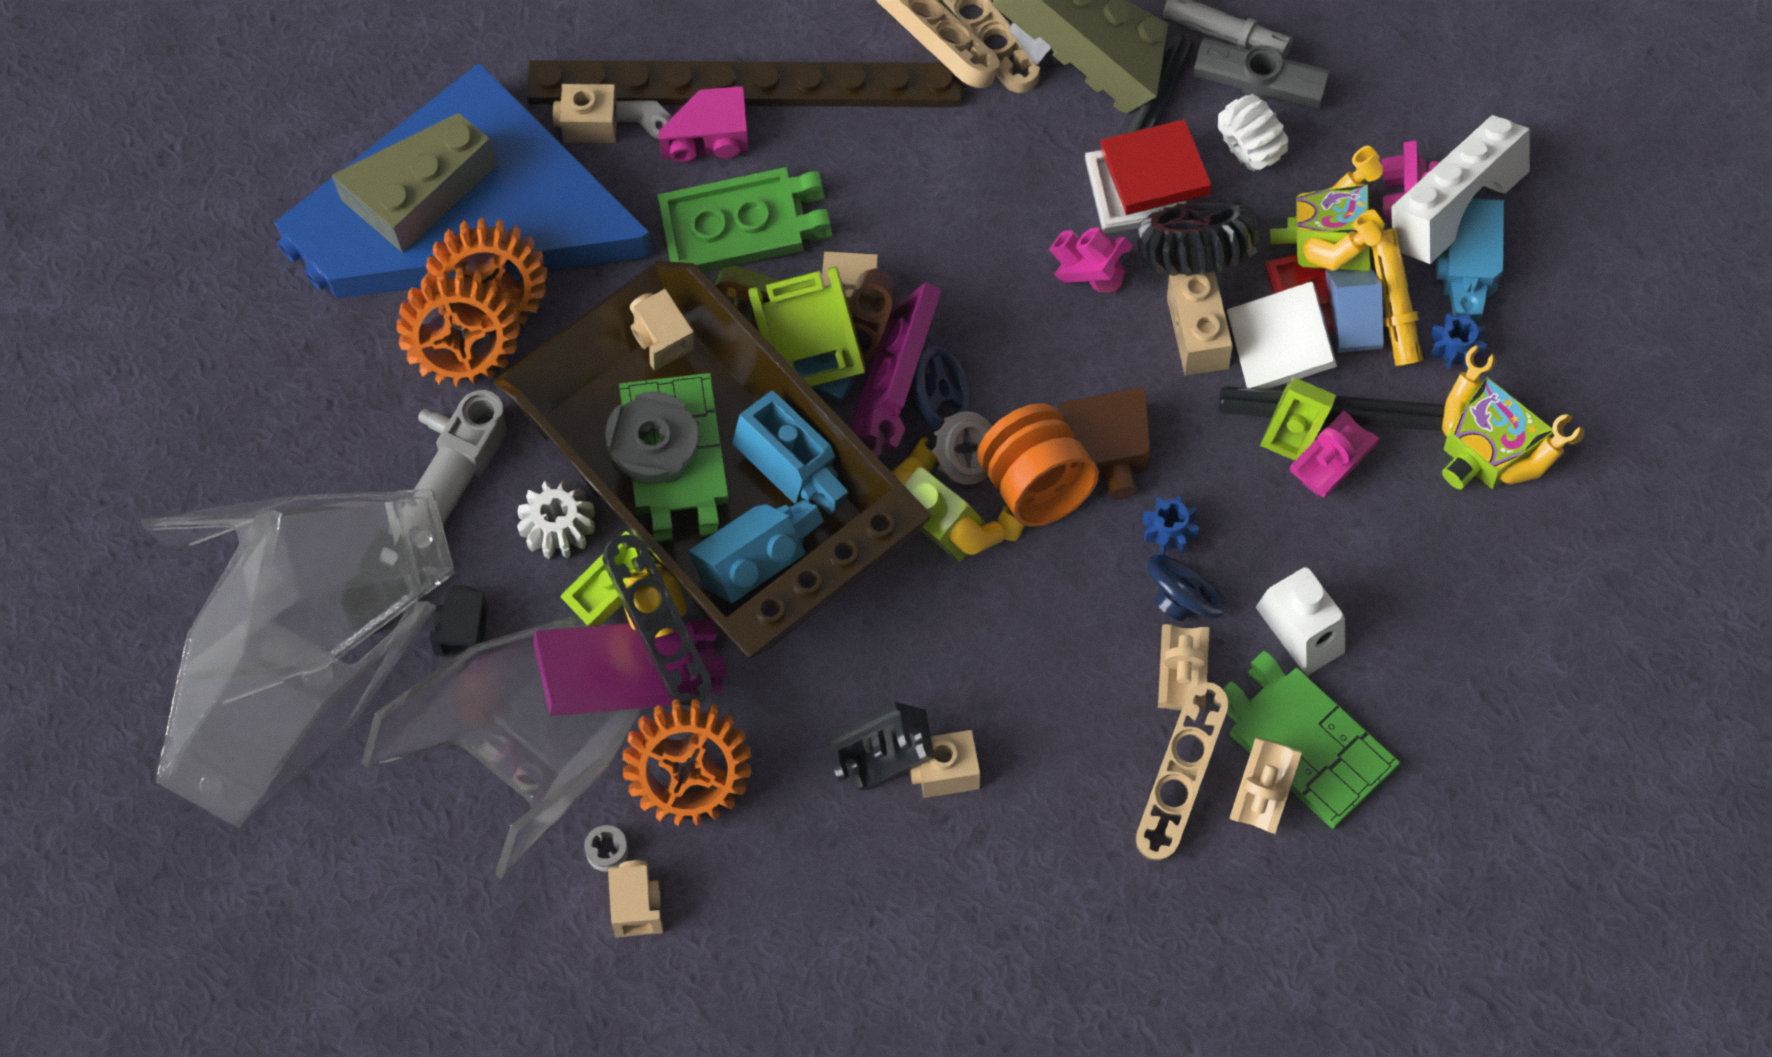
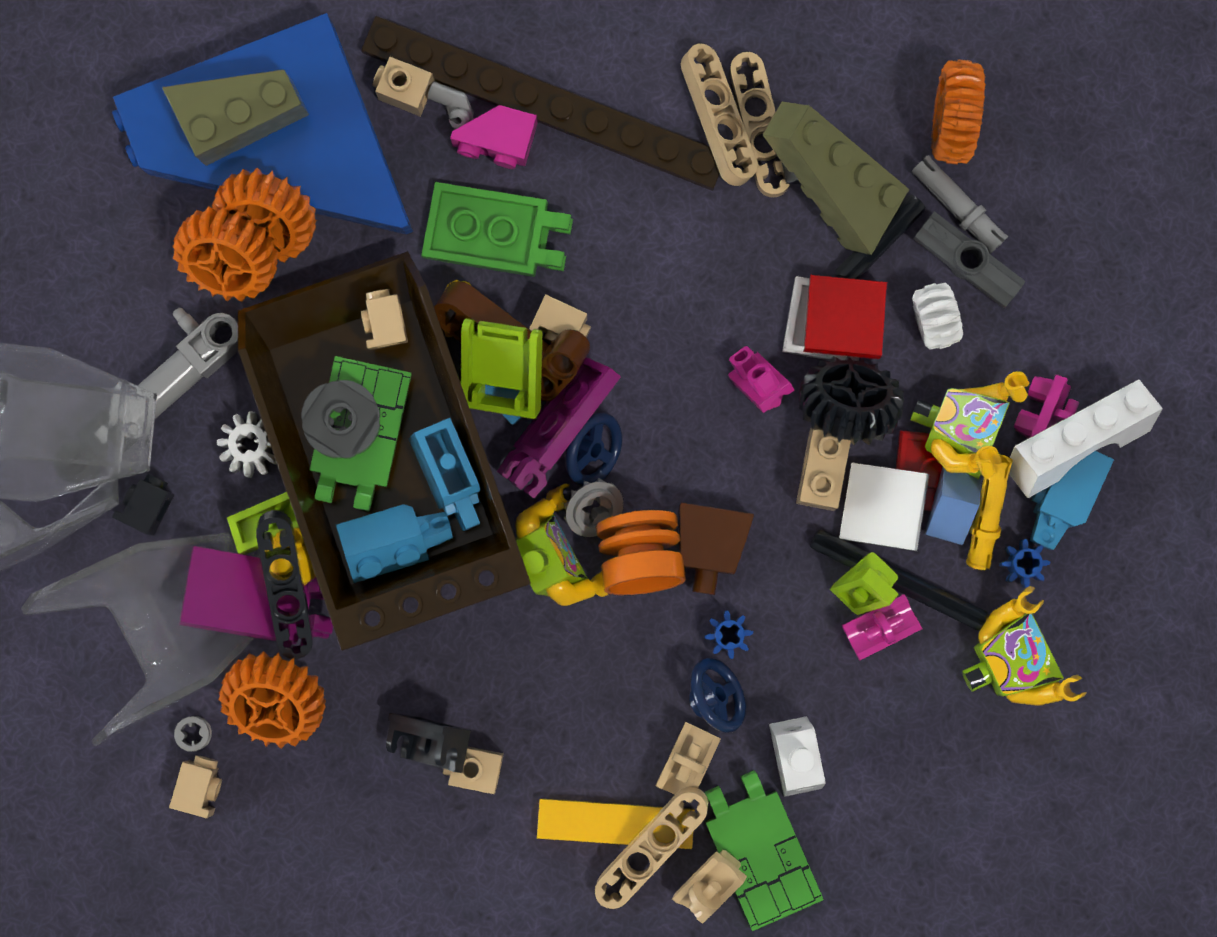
camera: 15 degrees right, 20 degrees up
(1116, 773) = (601, 822): none -> yellow tile

